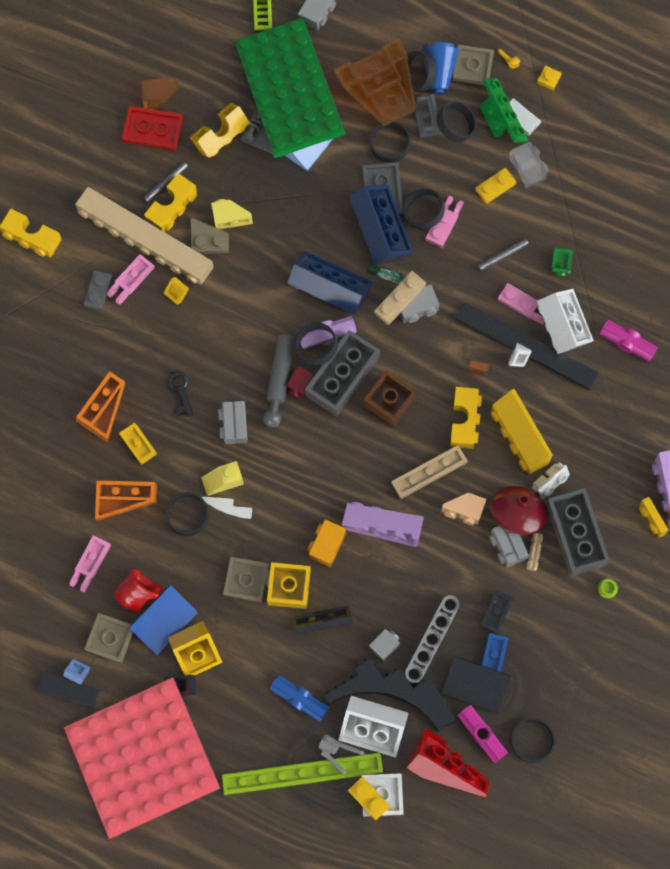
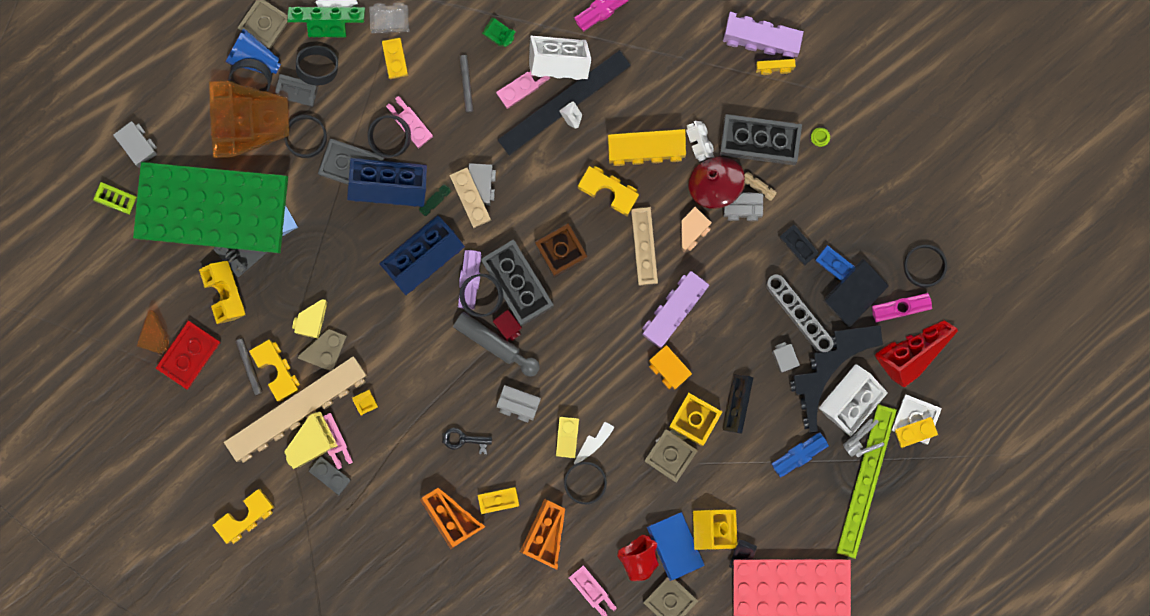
camera: 70 degrees left, 10 degrees up
(120, 258) = (310, 441): none -> light yellow slope
(478, 368) = (567, 156): dark orange tile -> none

